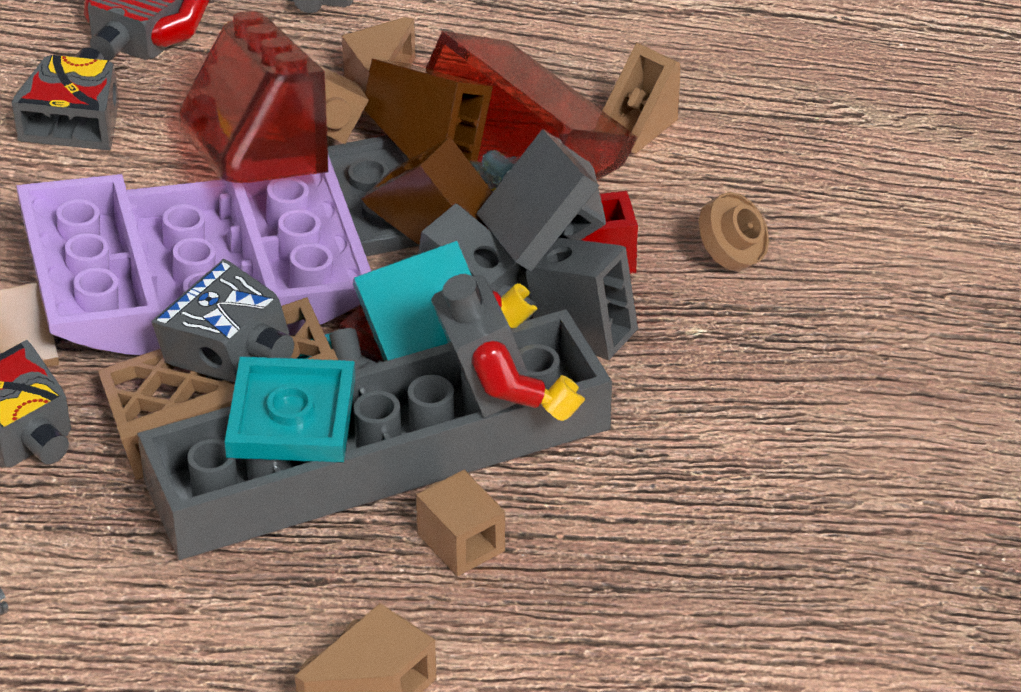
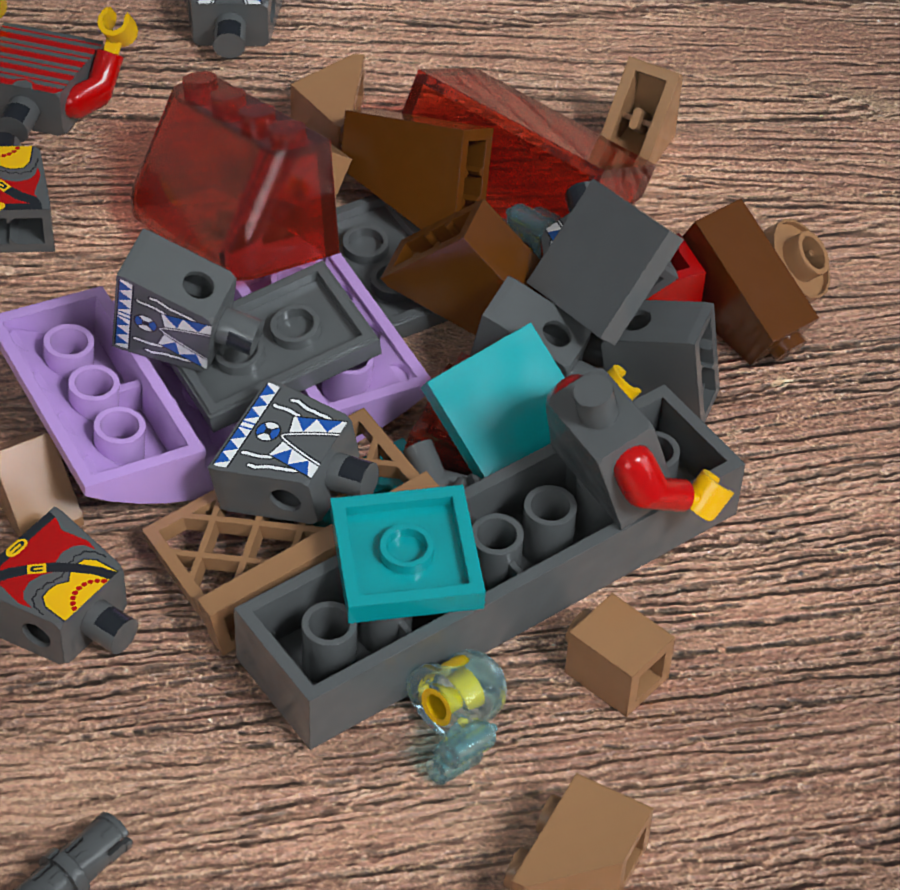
camera: 15 degrees left, 5 degrees up
(163, 190) = (178, 306): none -> dark grey torso
(254, 230) = (305, 339): none -> dark grey tile
(311, 541) = (458, 705): none -> clear light blue piece
(678, 243) = (752, 290): none -> reddish brown slope

